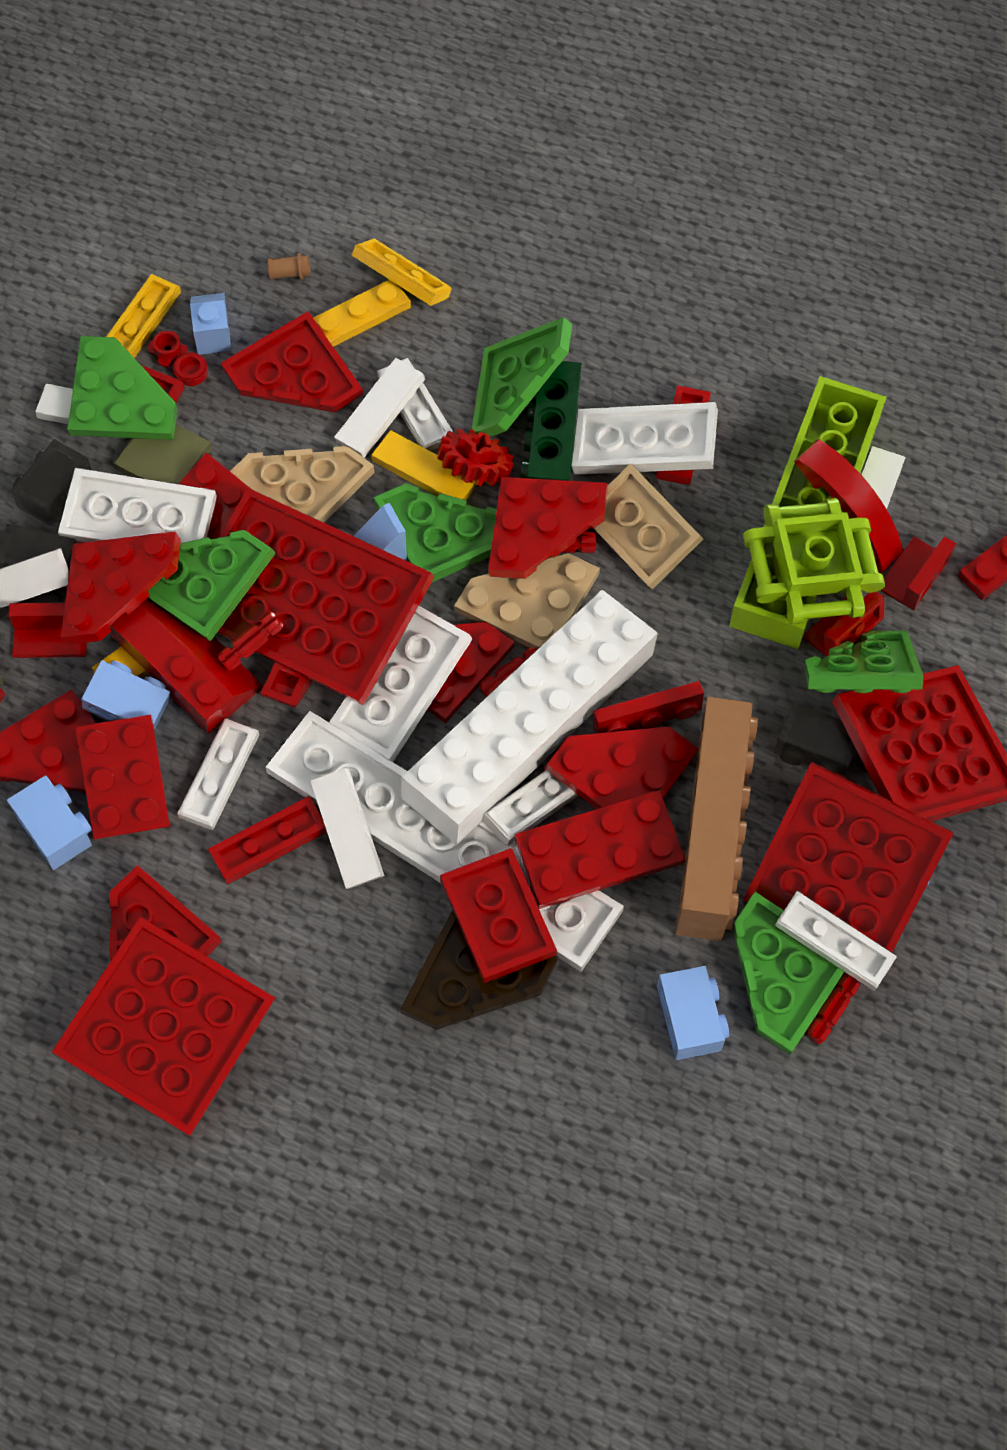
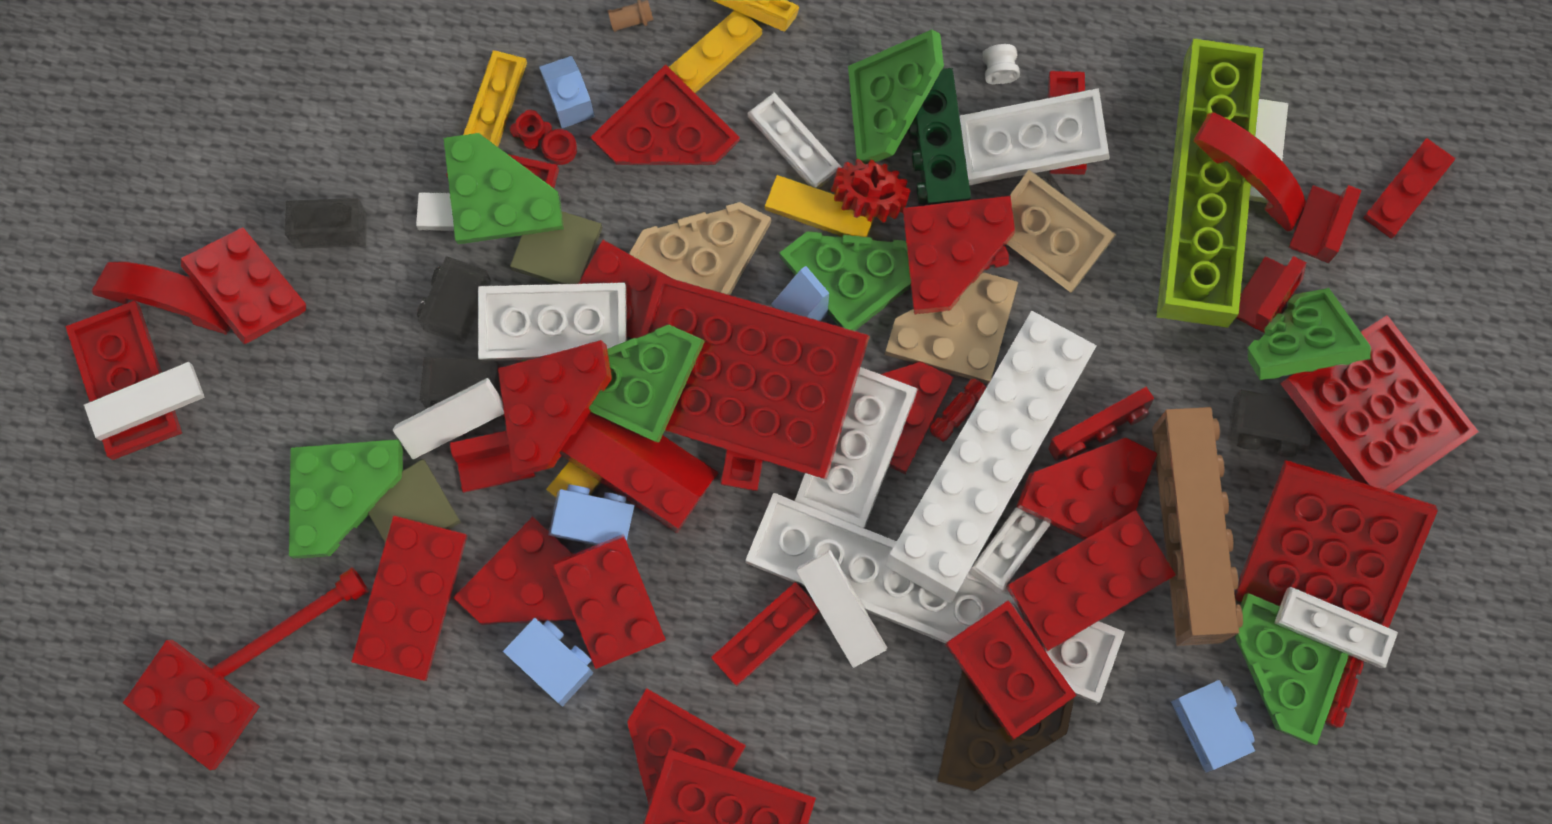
camera: 10 degrees left, 10 degrees up
(218, 774) = (698, 574): white tile -> none
(250, 641) = (700, 436): red axle -> none
(380, 407) = (761, 153): white tile -> none
(631, 371) = (1001, 64): none -> white wheel
(814, 557) = (1235, 241): lime brick -> none

